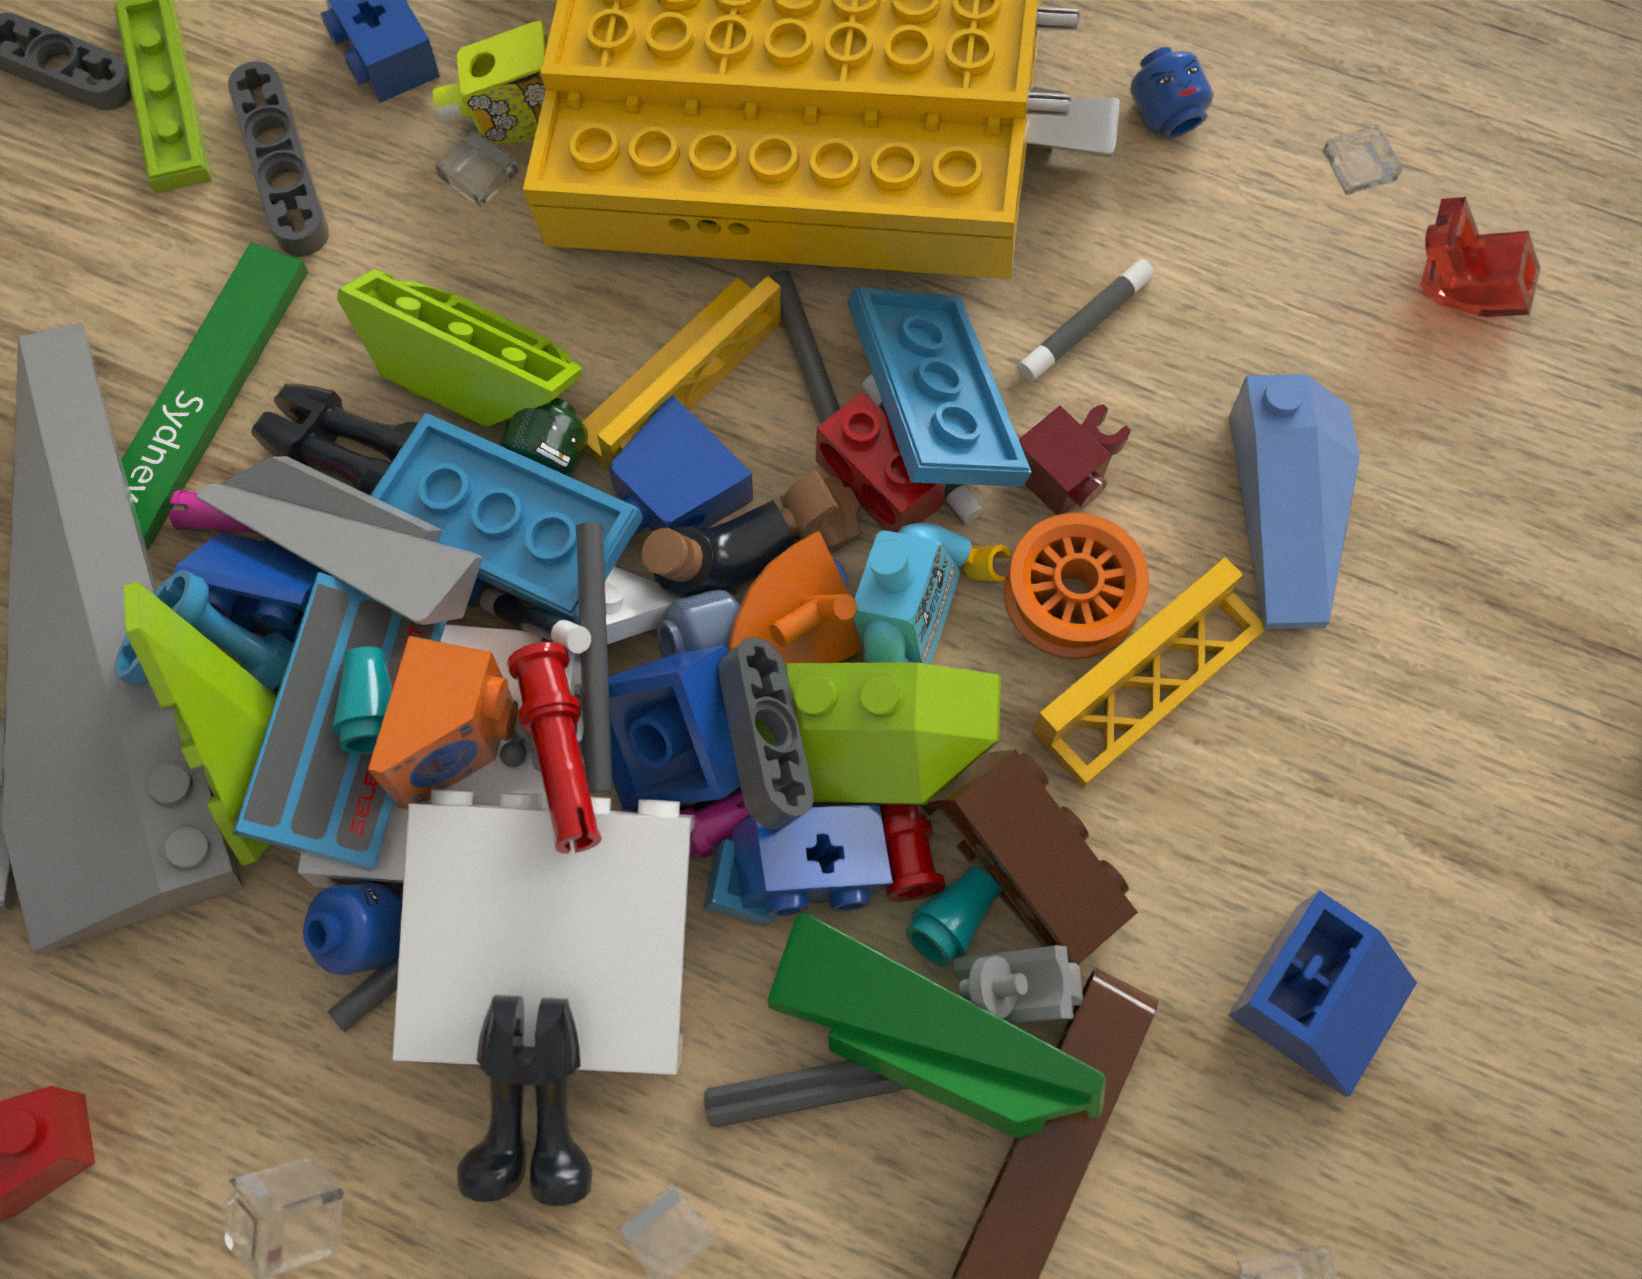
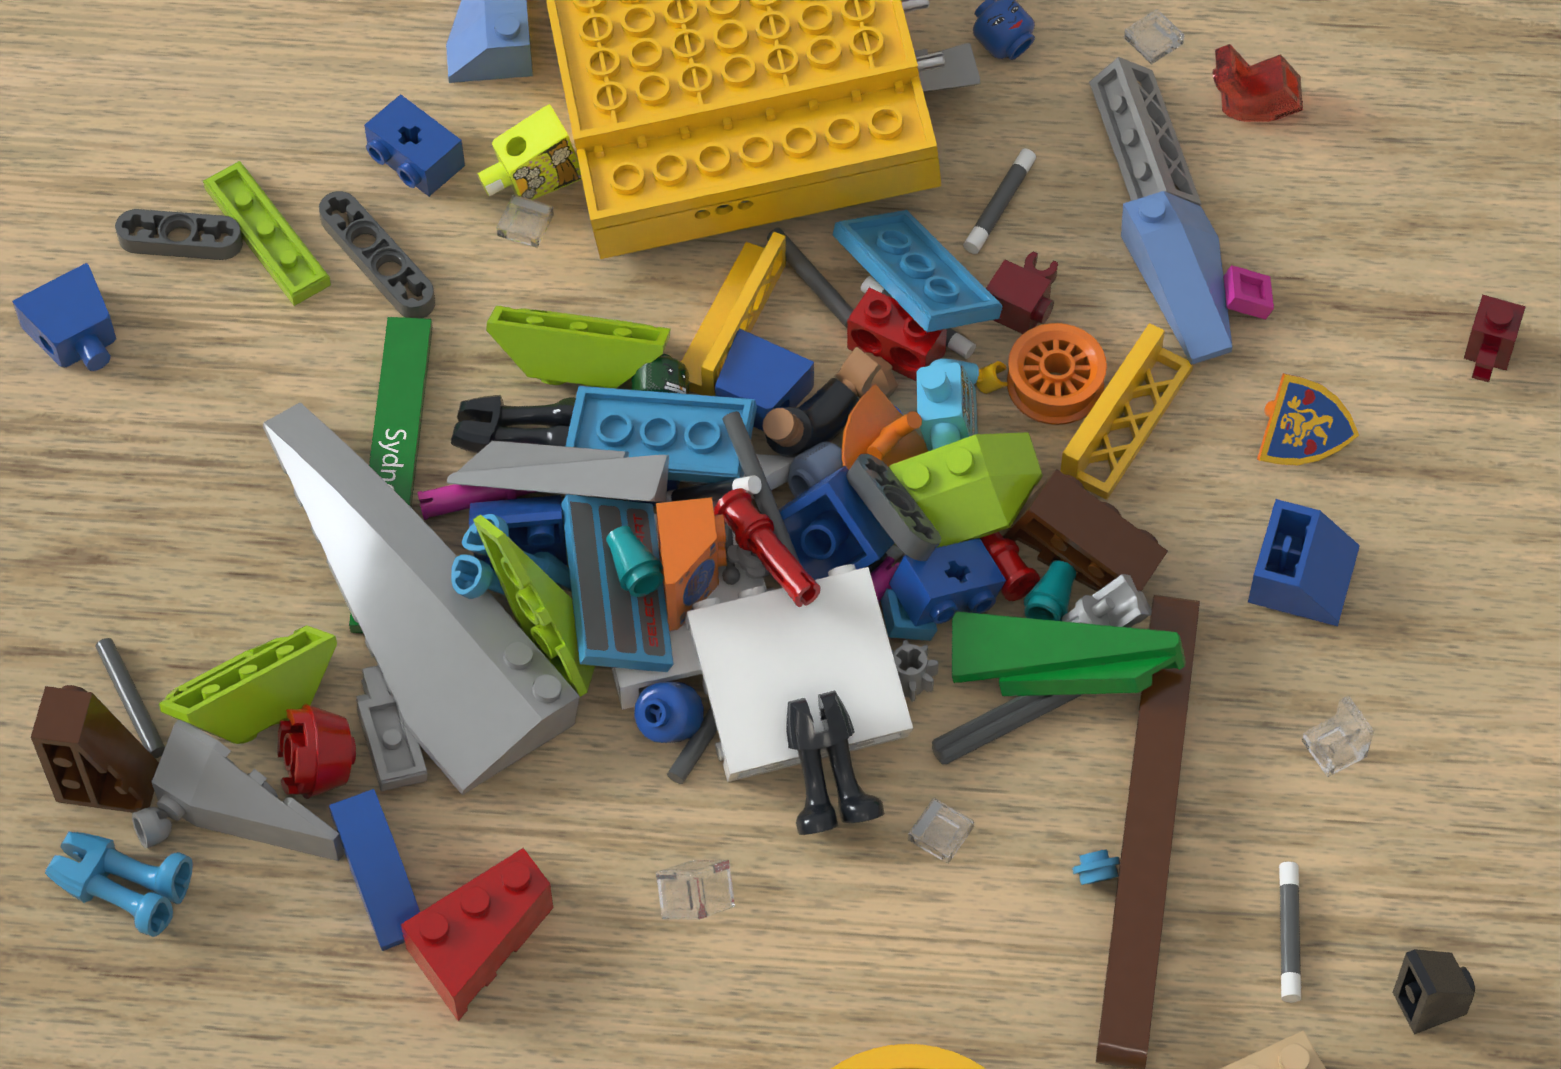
camera: 15 degrees left, 10 degrees down
(718, 951) = (914, 669): none -> light grey gear
(1299, 280) = (1142, 144): none -> light grey fence
(1376, 549) = (1248, 292): none -> dark pink plate
(1395, 773) = (1304, 423): none -> shield

